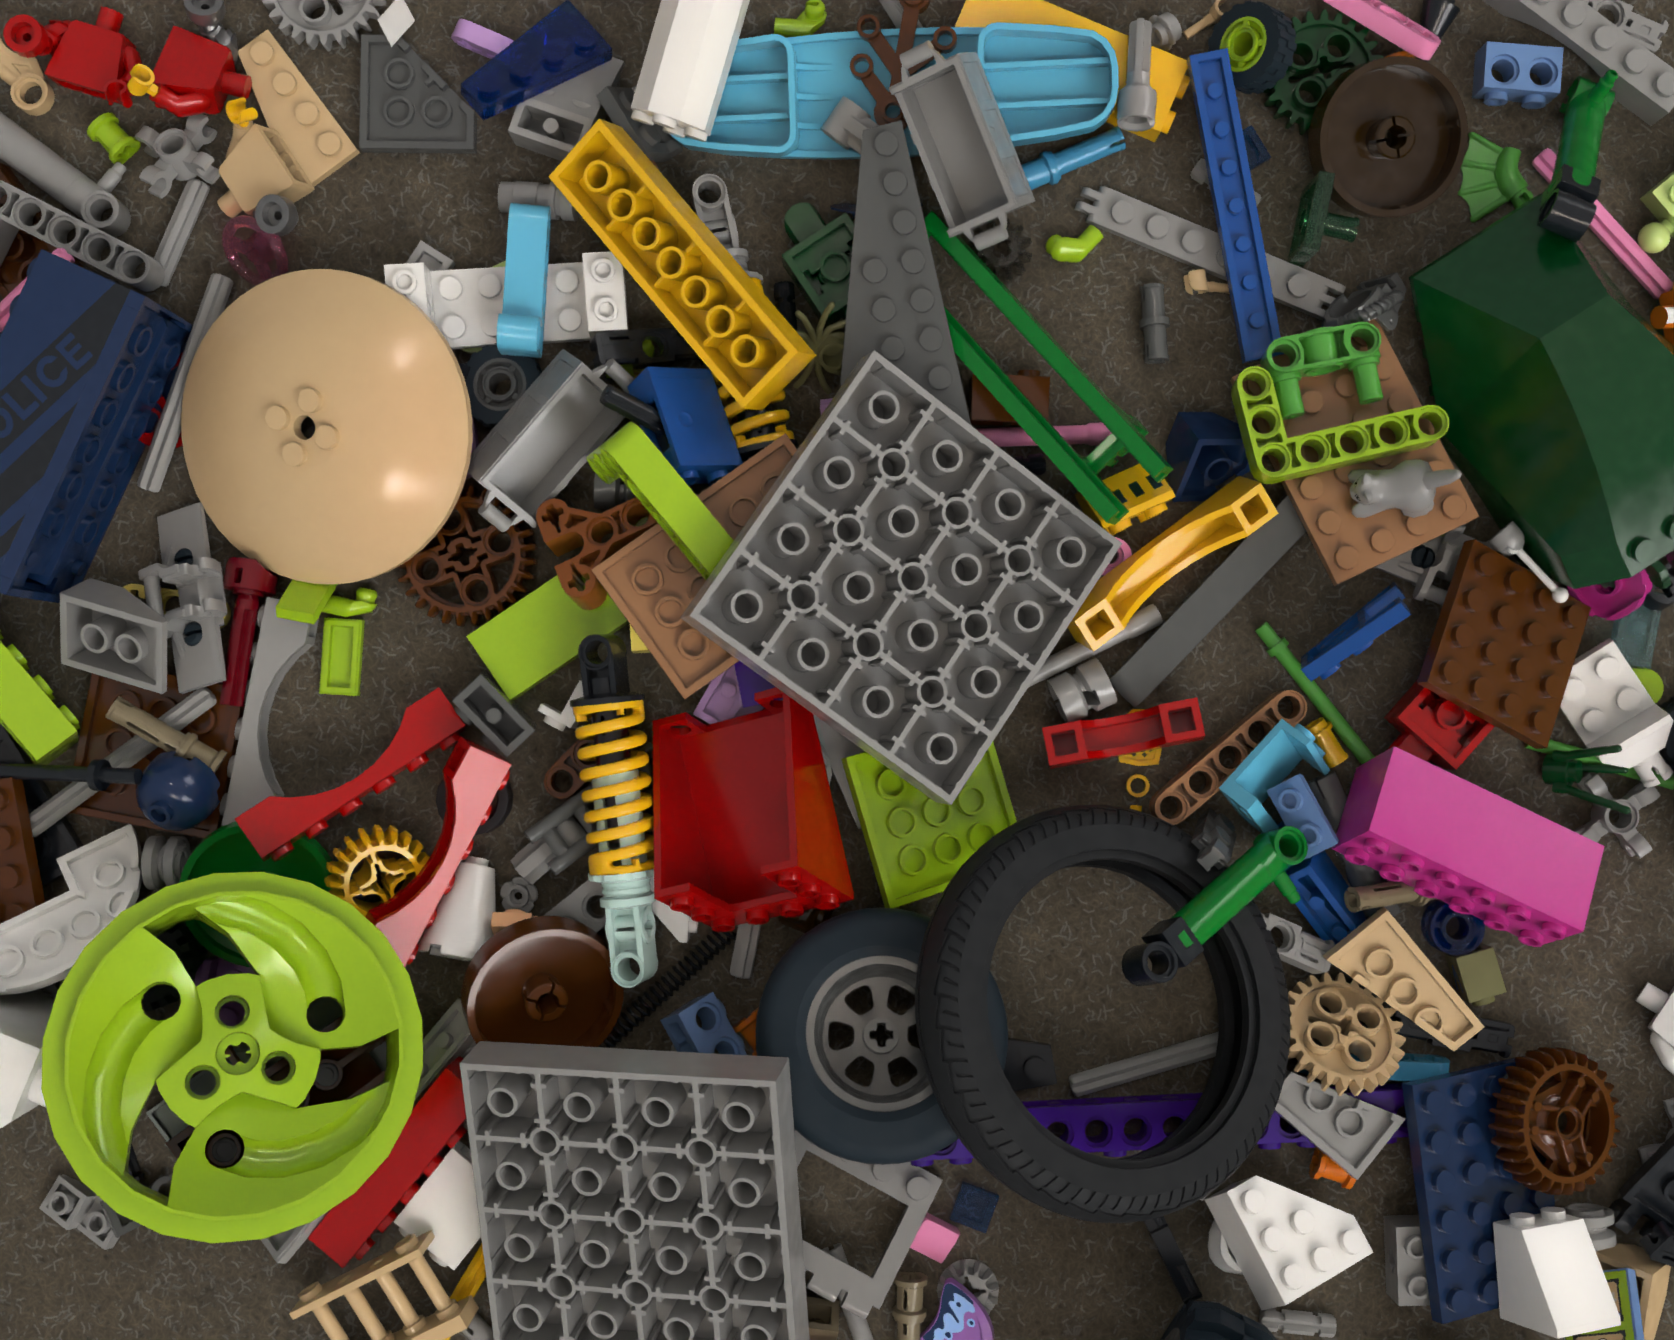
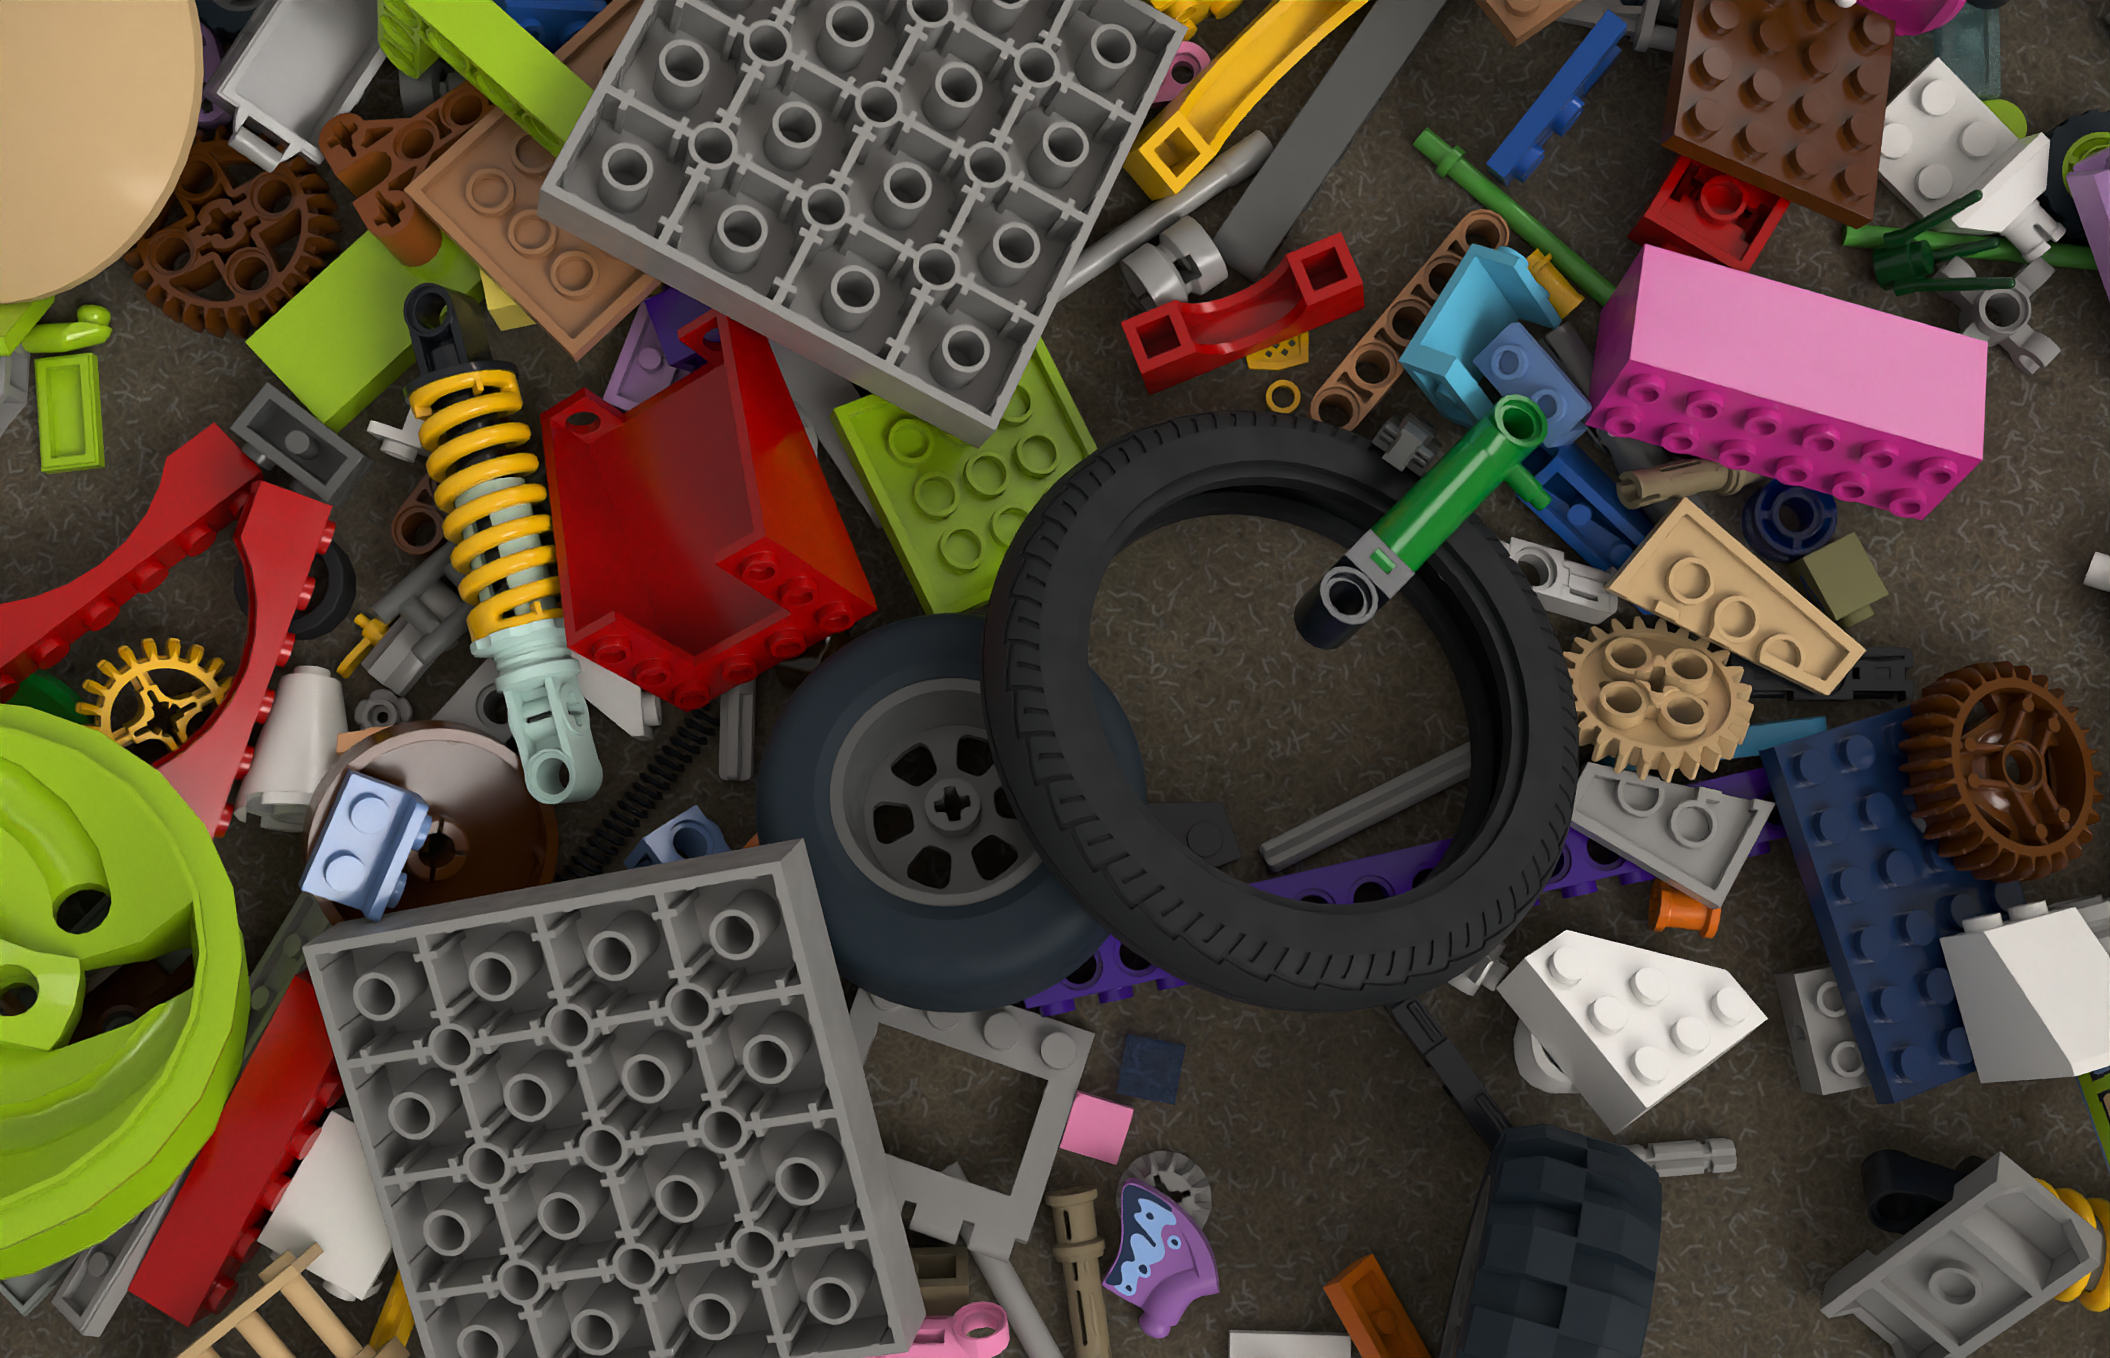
camera: 10 degrees left, 5 degrees down
(507, 999) = (366, 845): none -> bracket
(518, 840) = (372, 633): none -> yellow piece

